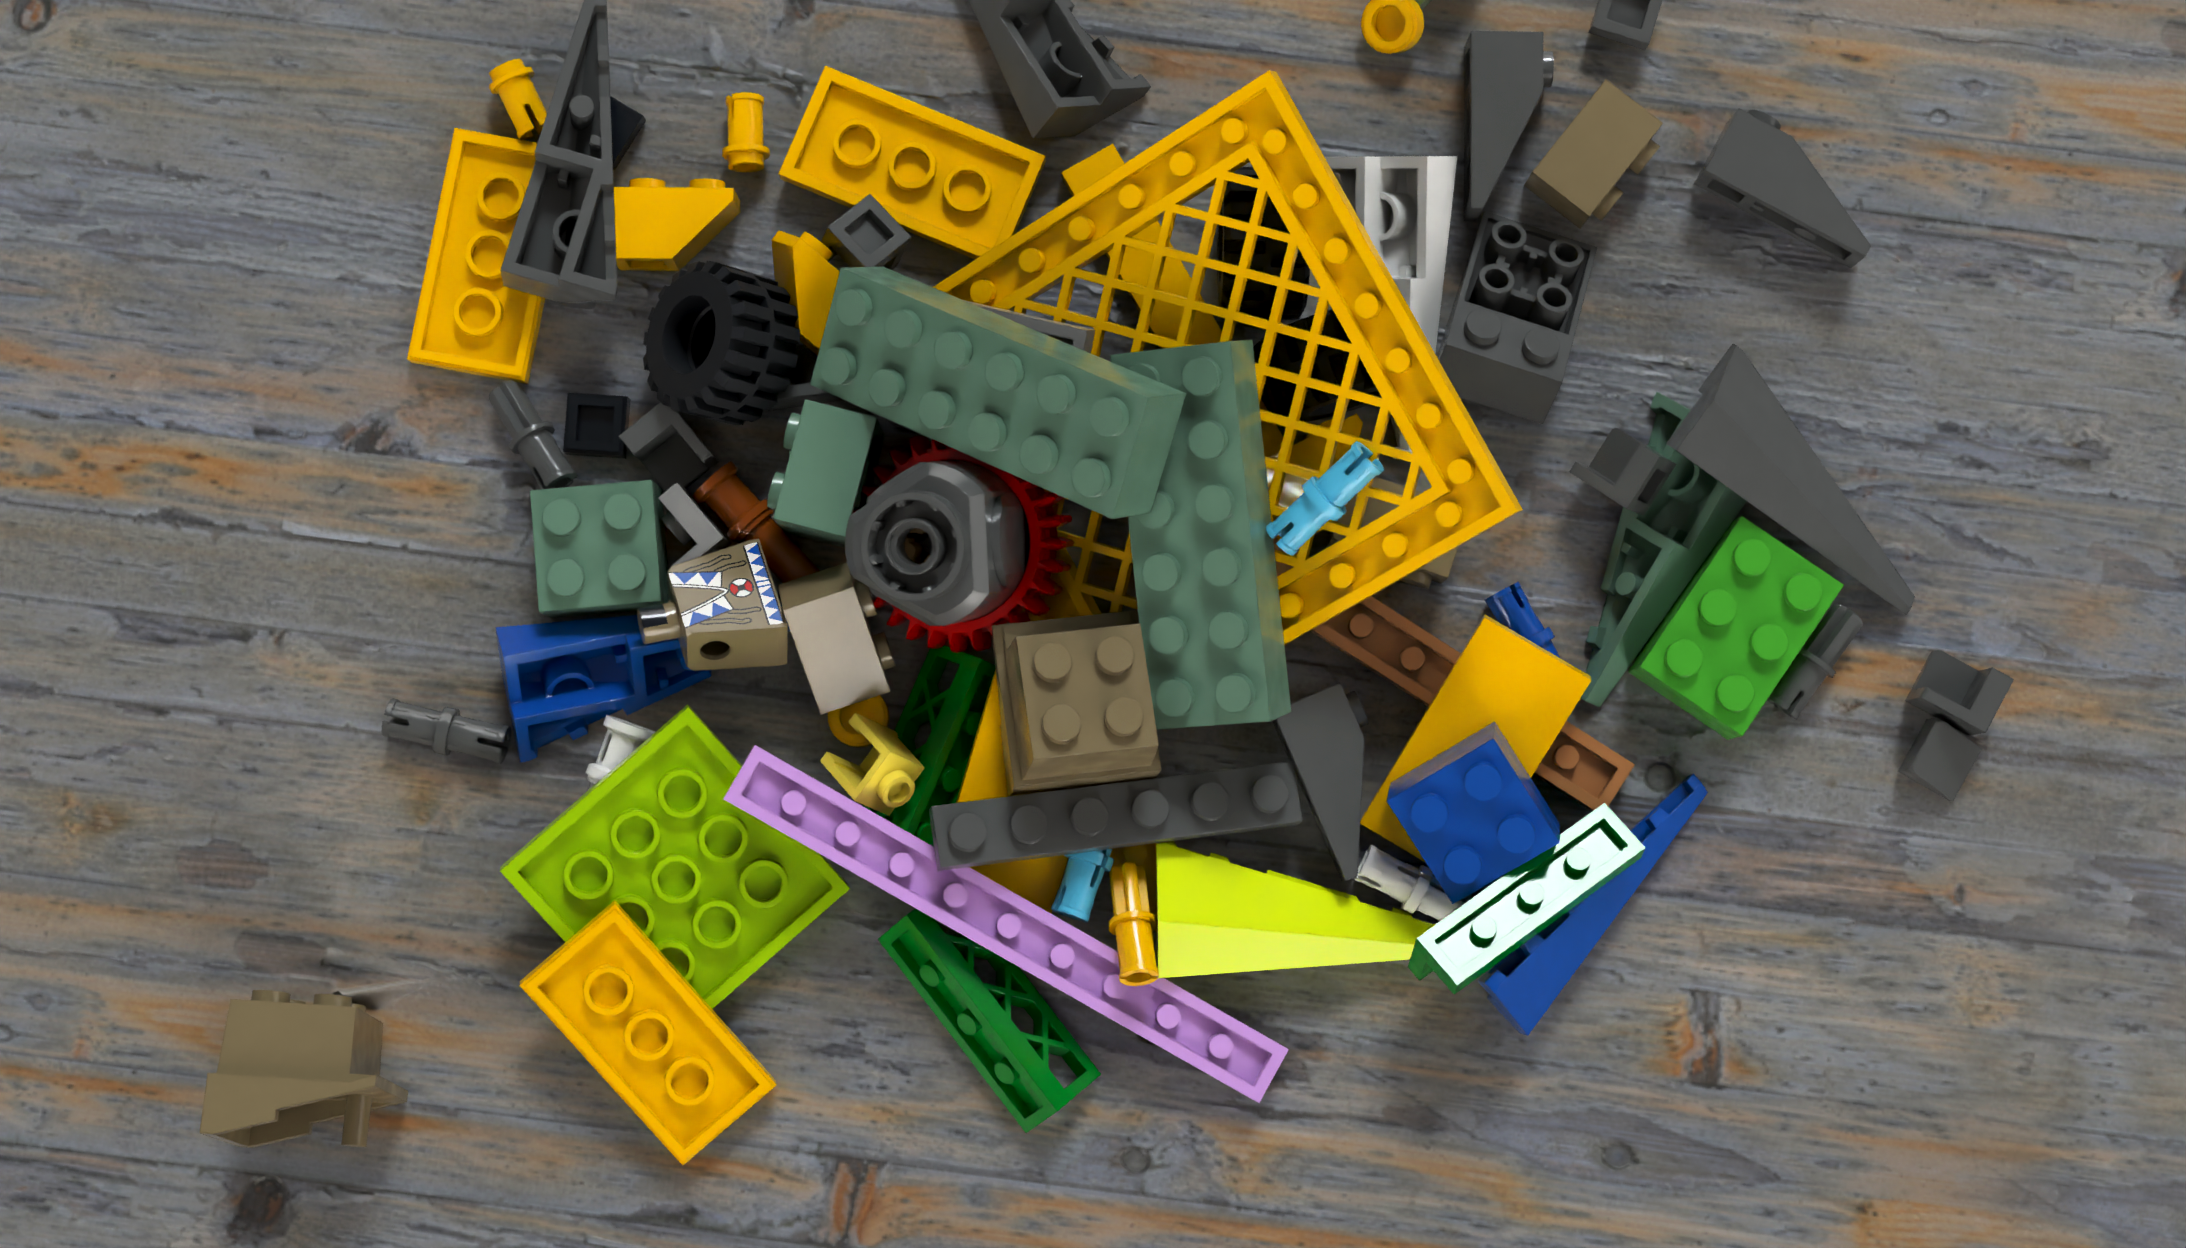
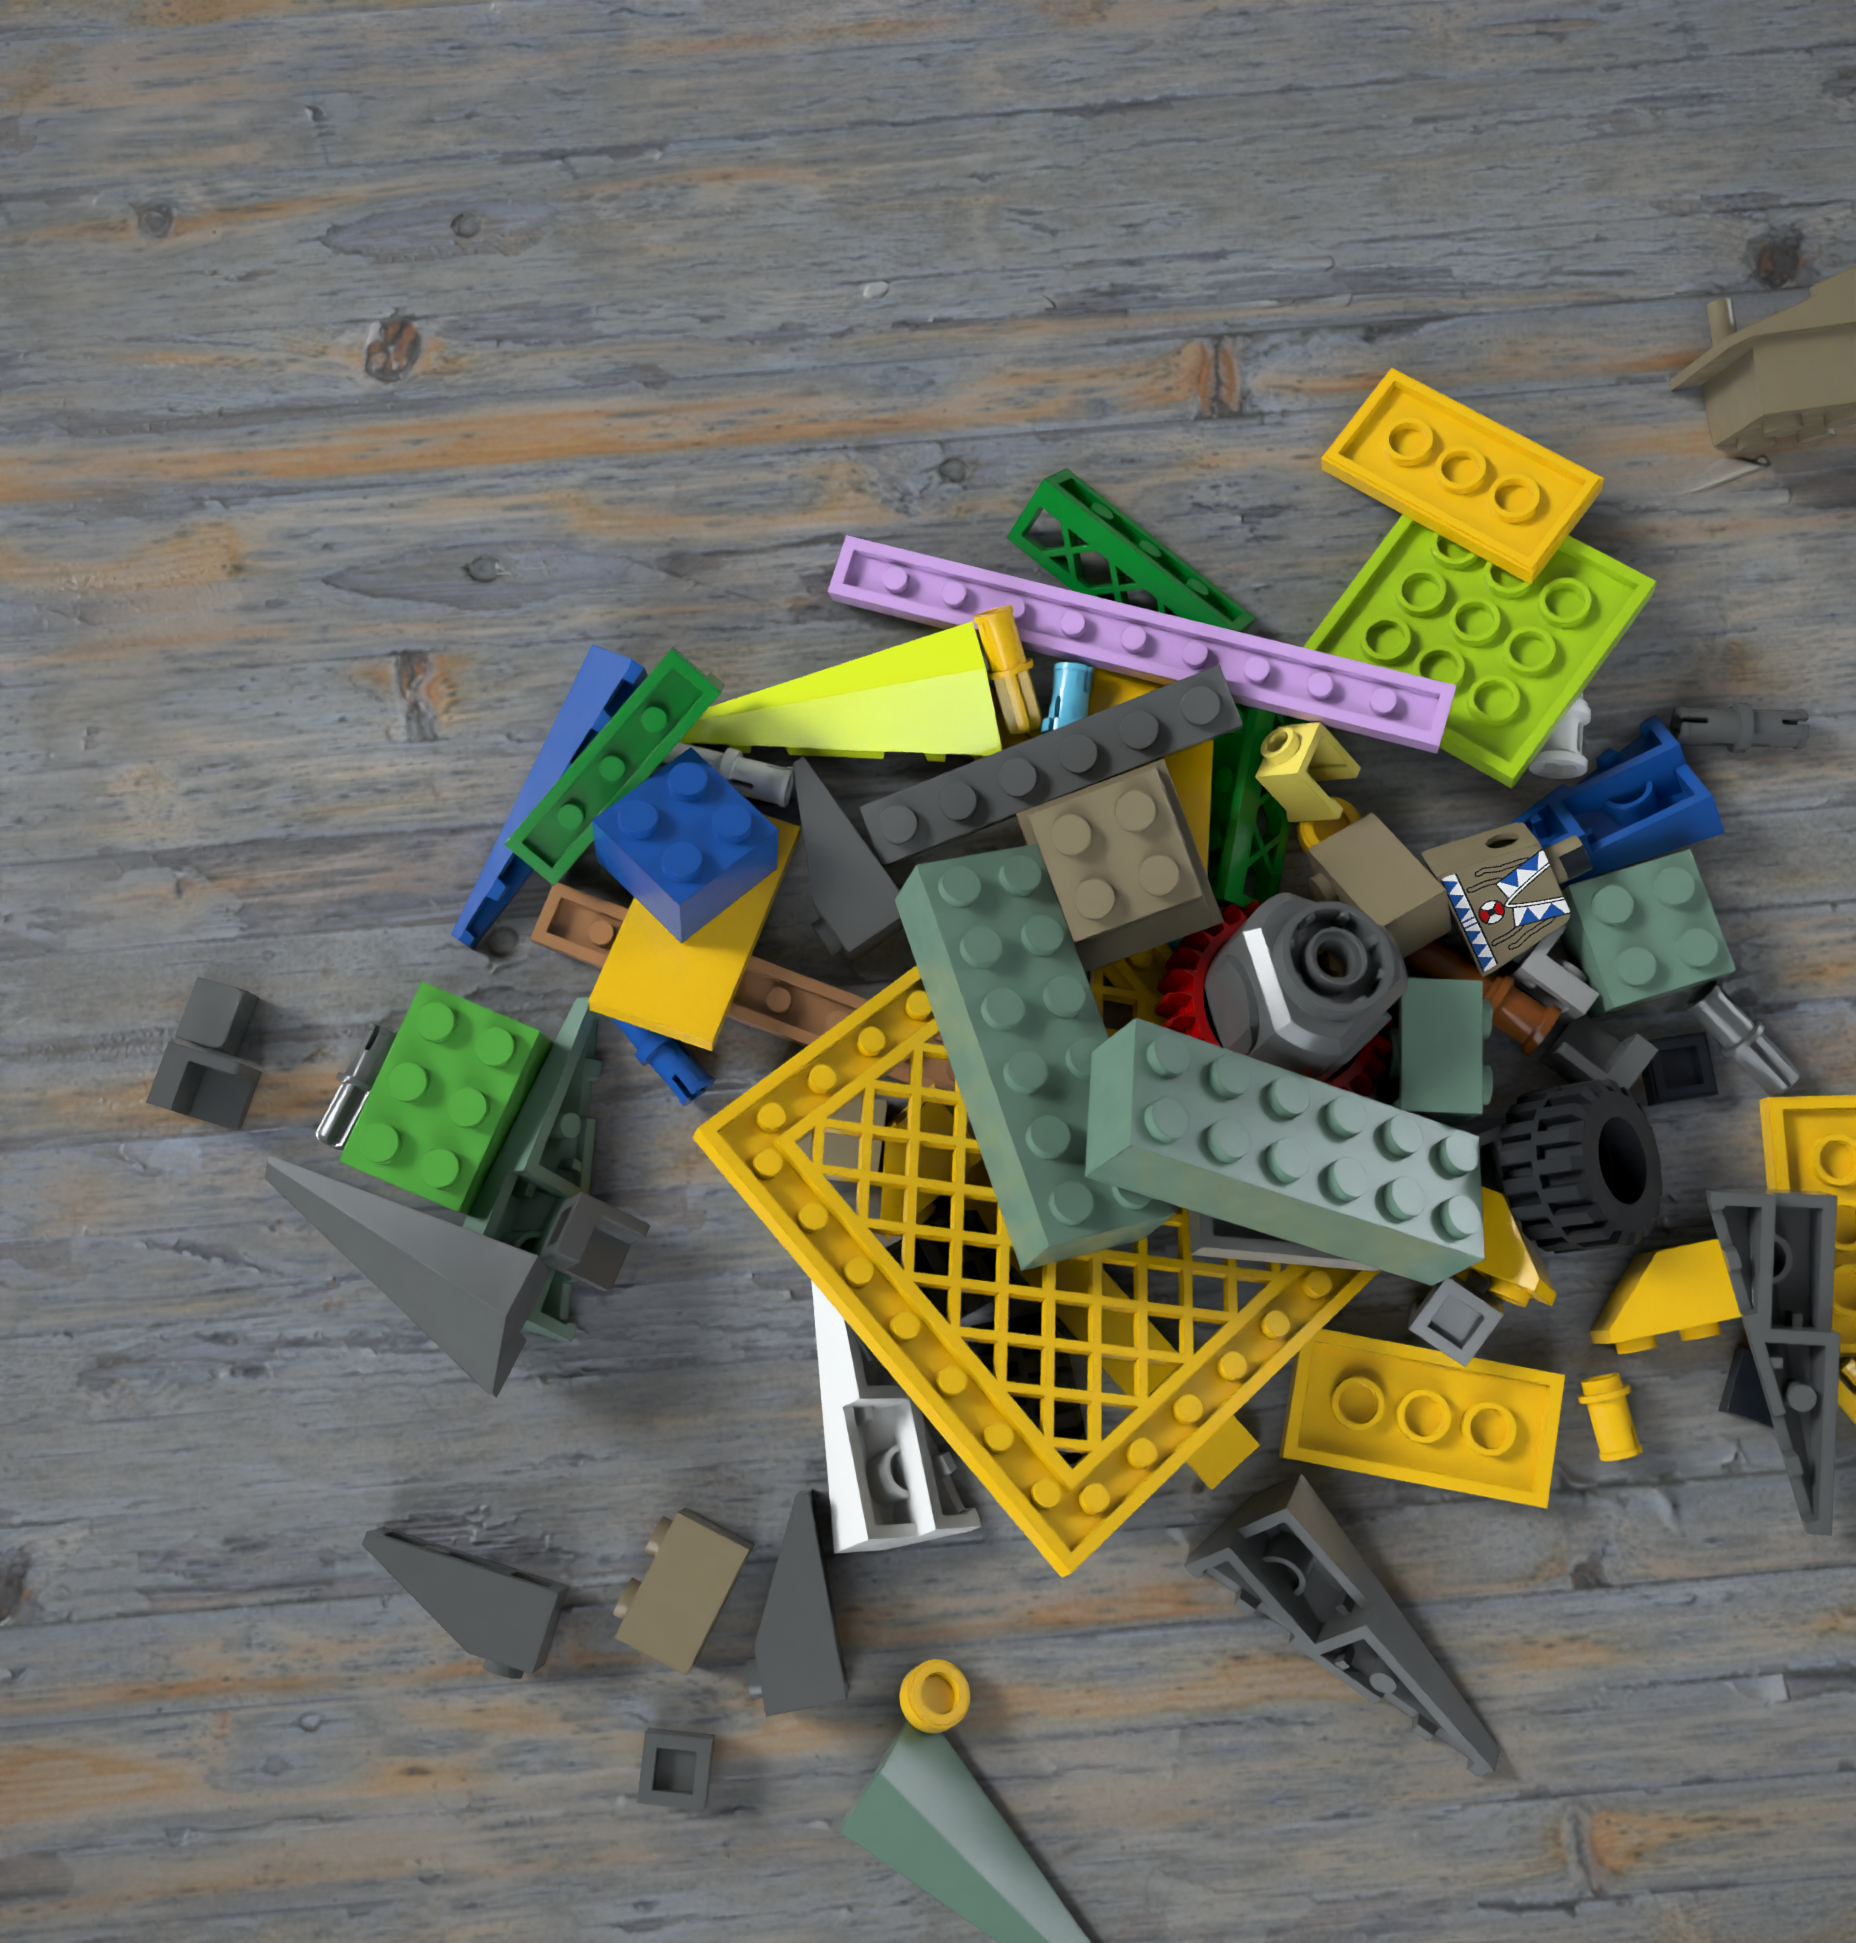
camera: 170 degrees right, 5 degrees down
(1324, 498) = (907, 1110): medium azure pin -> none
(1515, 316) = (738, 1389): dark grey slope -> none

